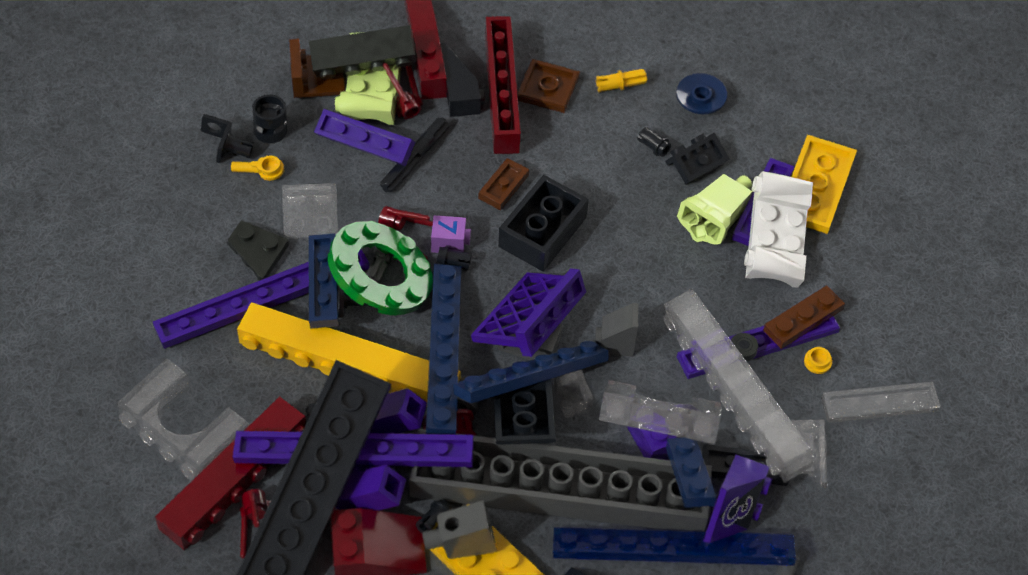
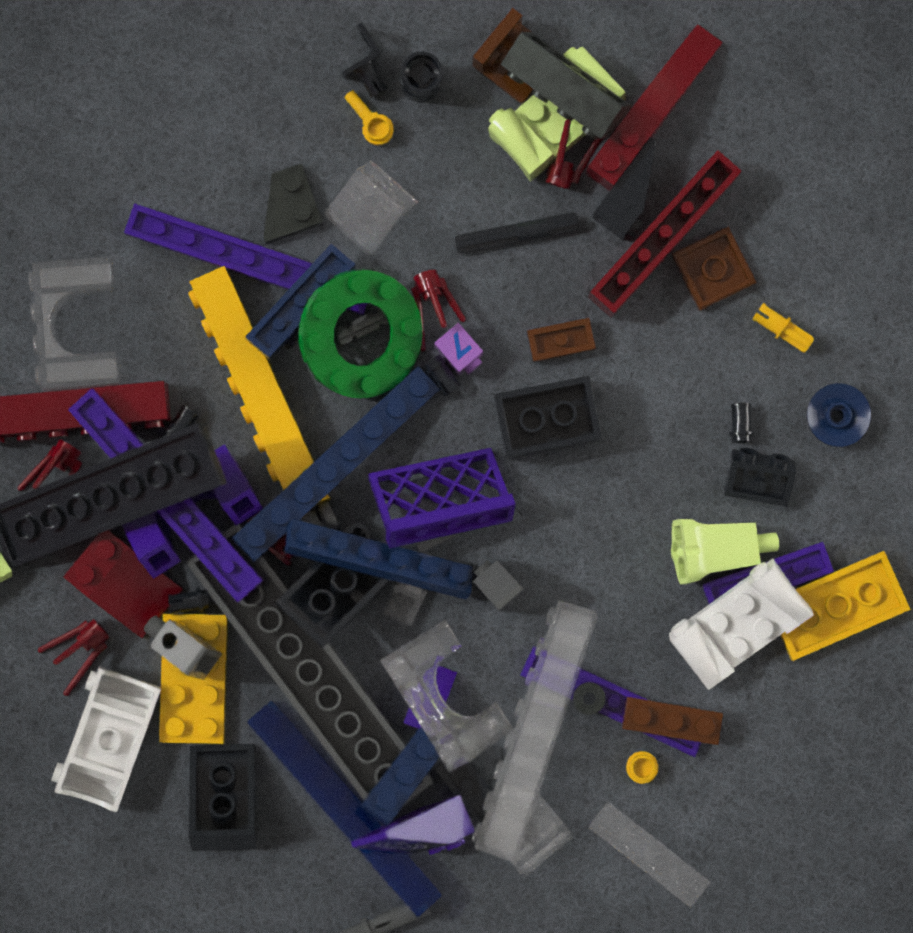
camera: 50 degrees right, 30 degrees up
(364, 137) = (484, 177): dark purple plate -> none

